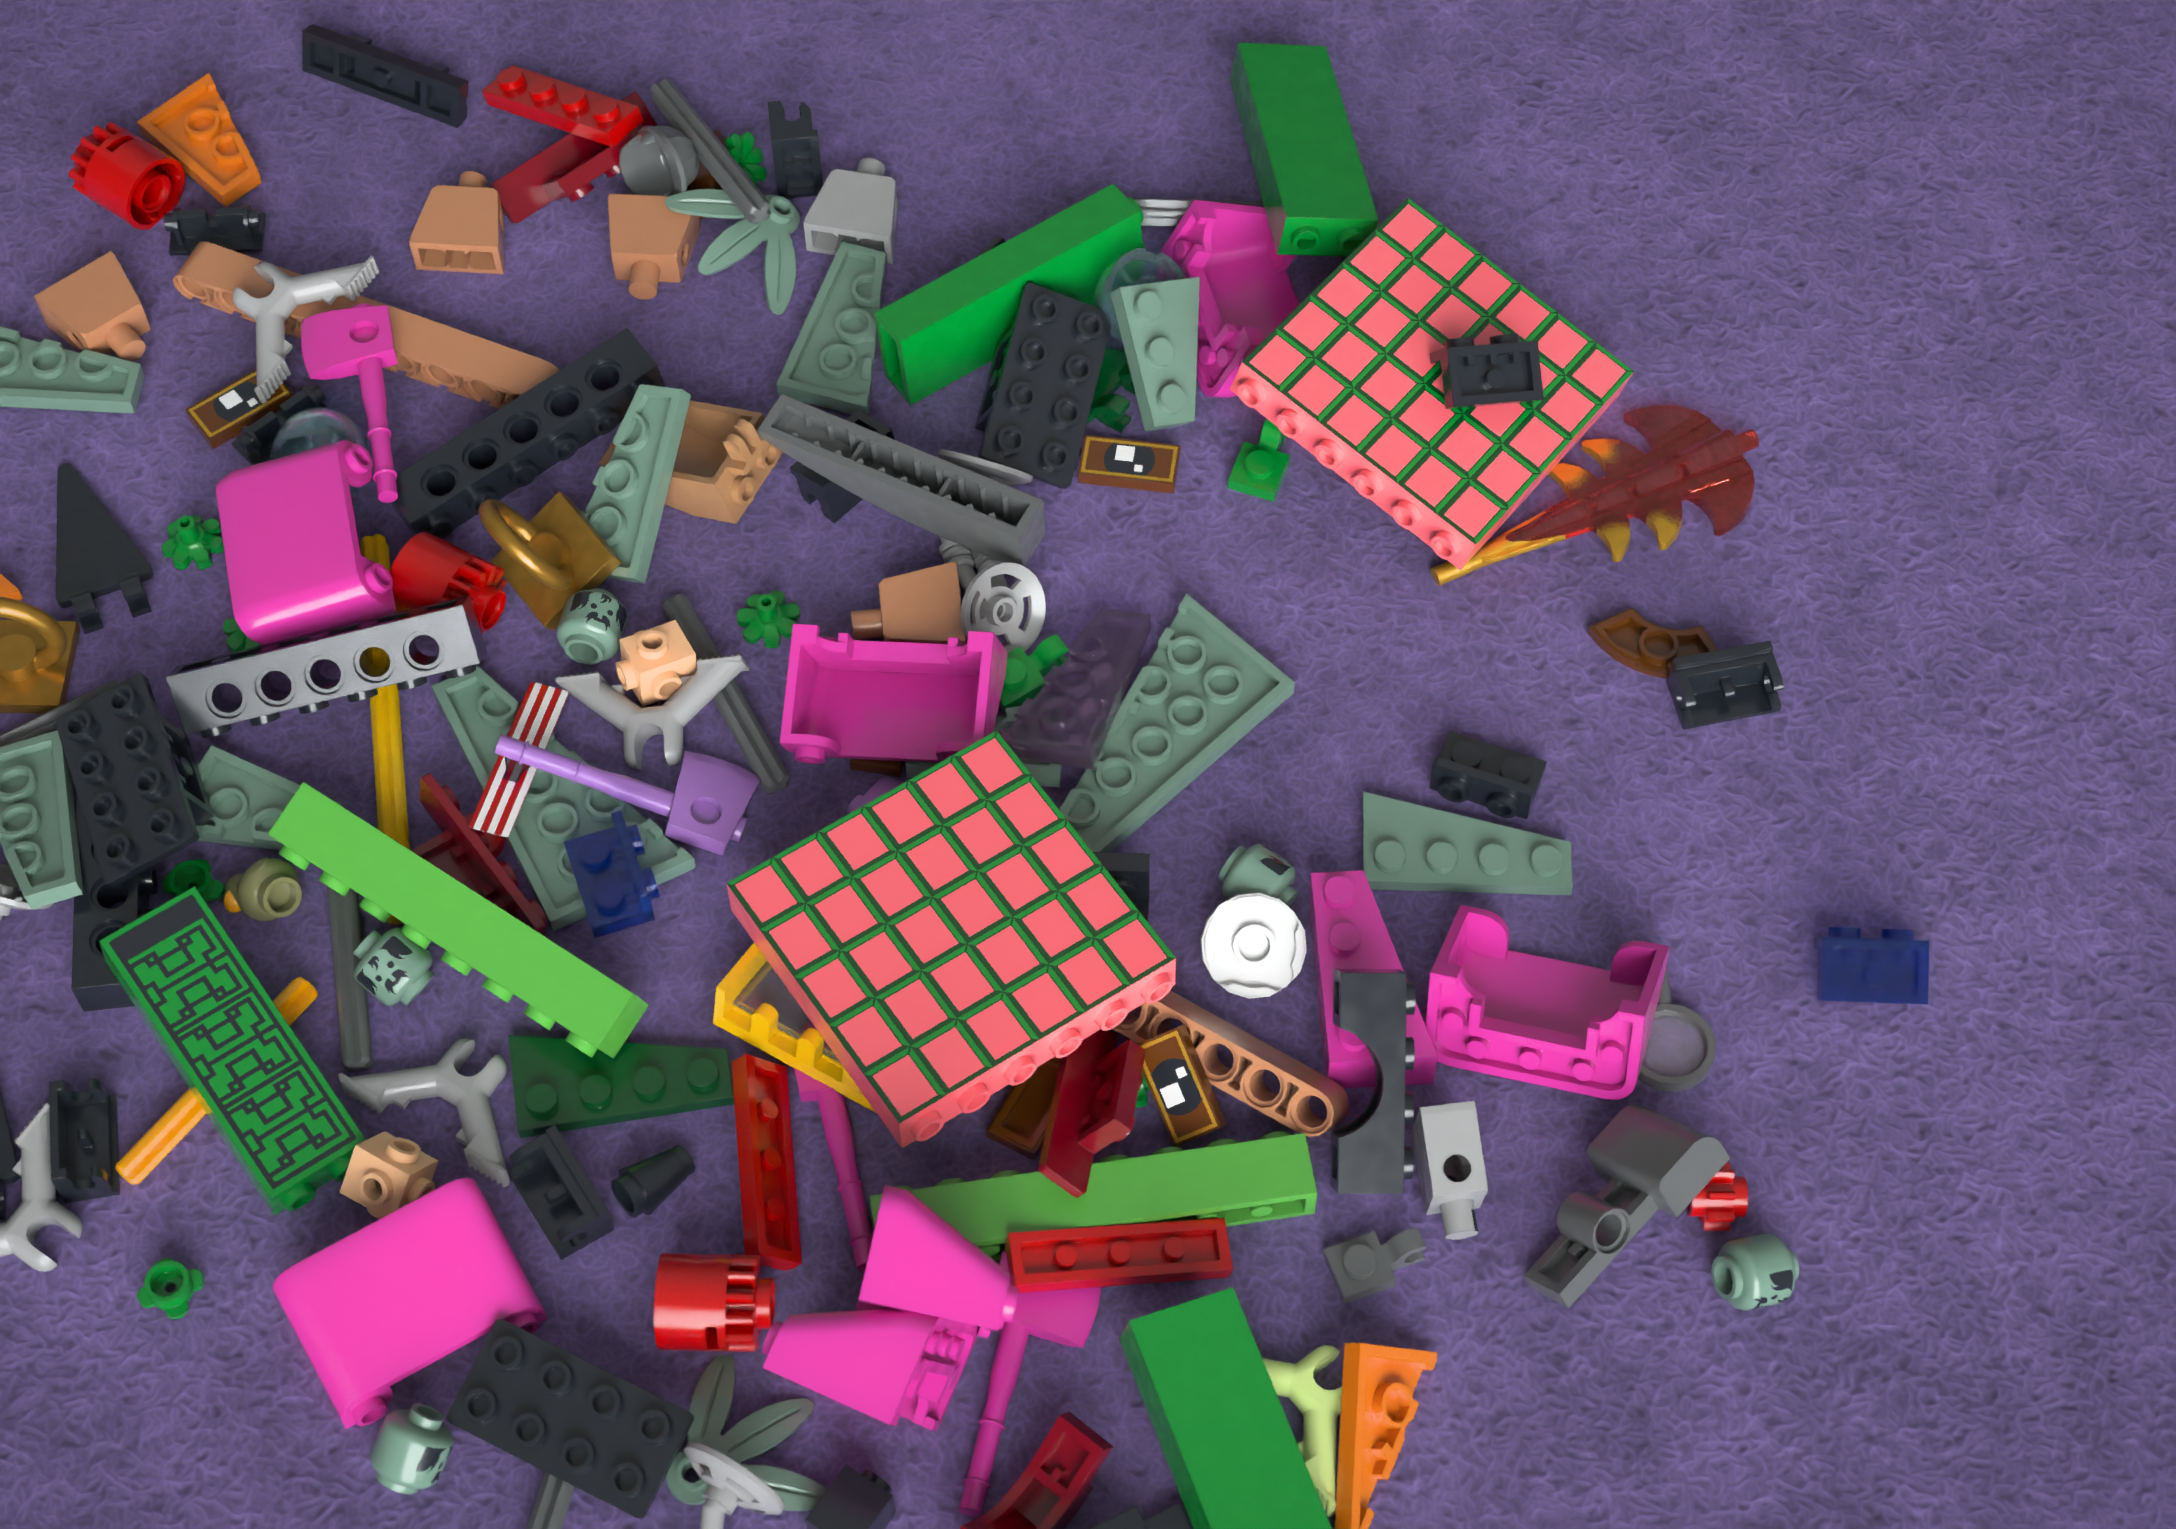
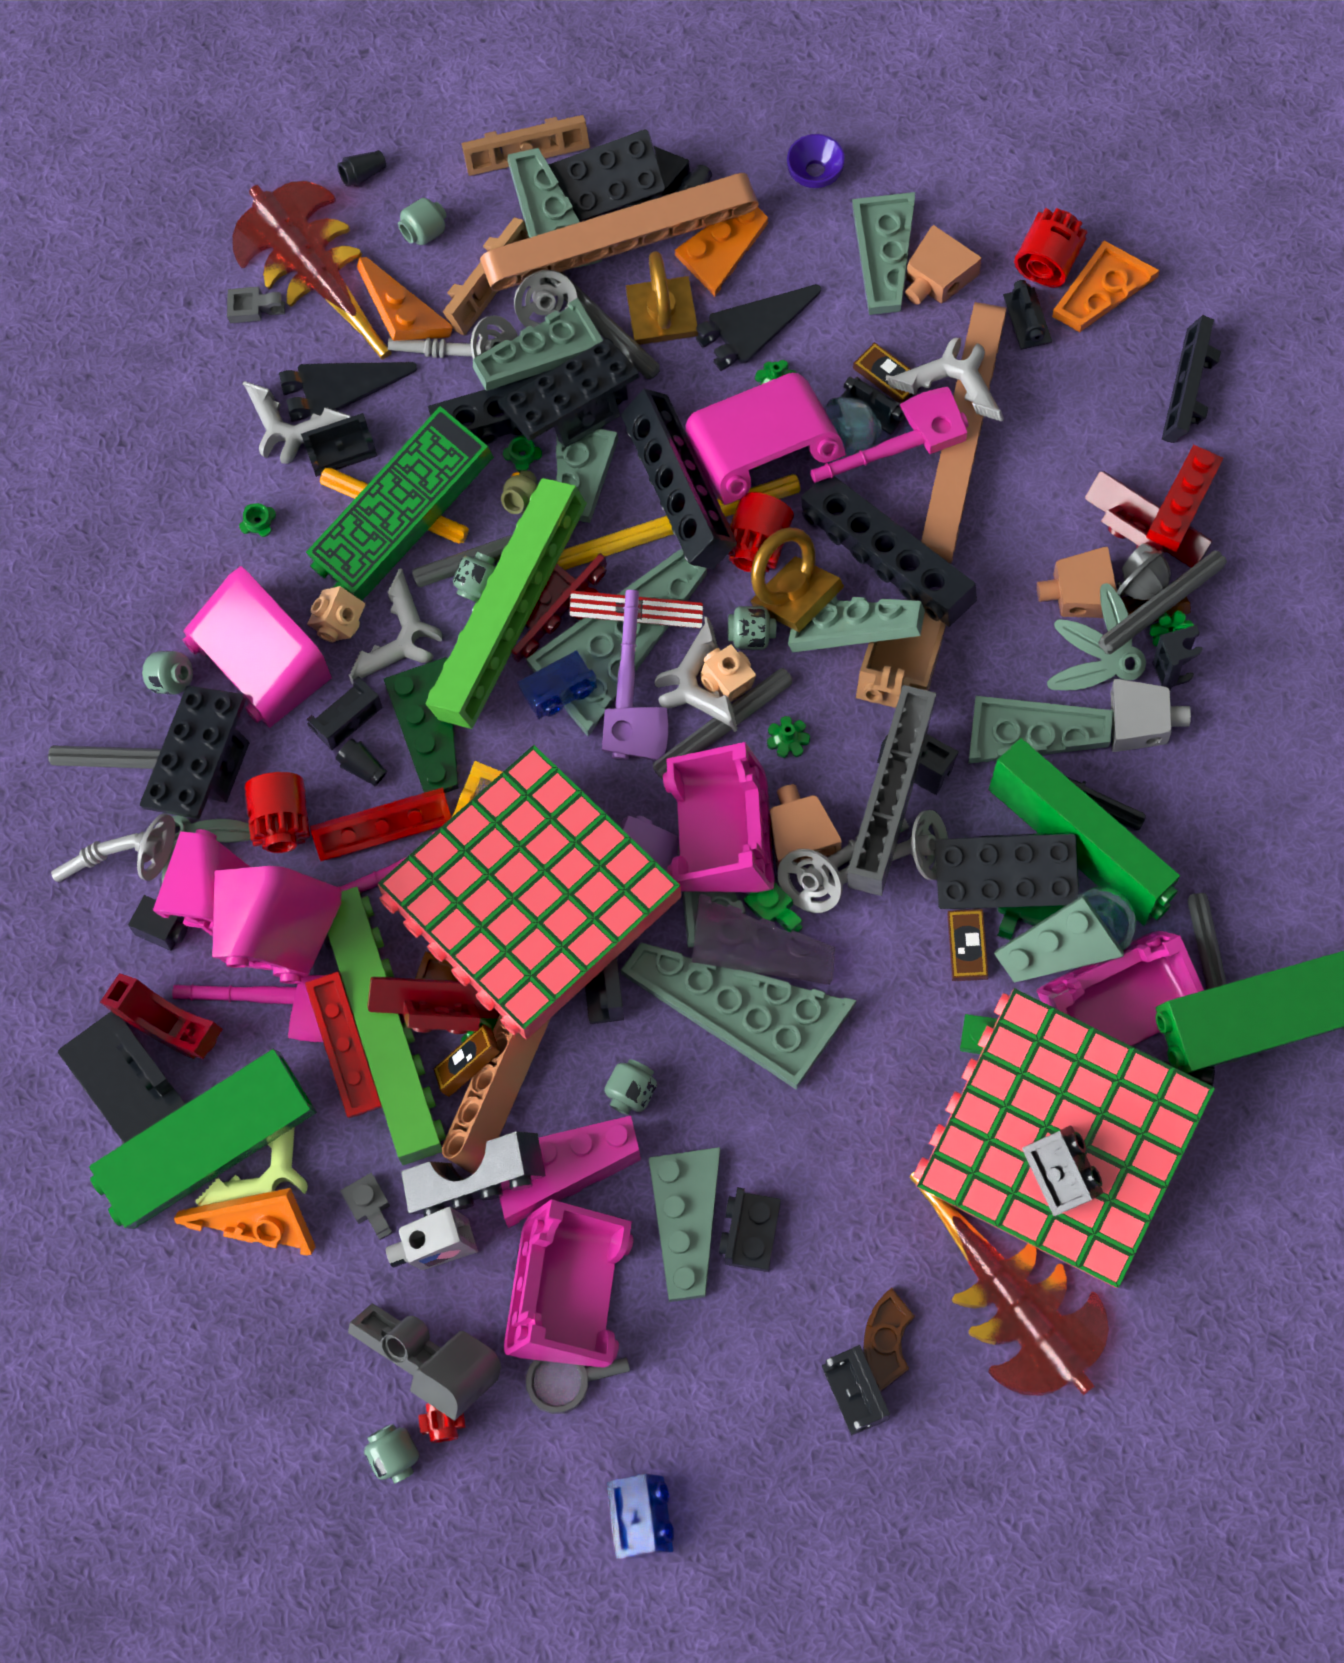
camera: 85 degrees right, 10 degrees up
(461, 228) = (1065, 464): nougat torso -> none
(1253, 945) = (580, 1091): white tile -> none

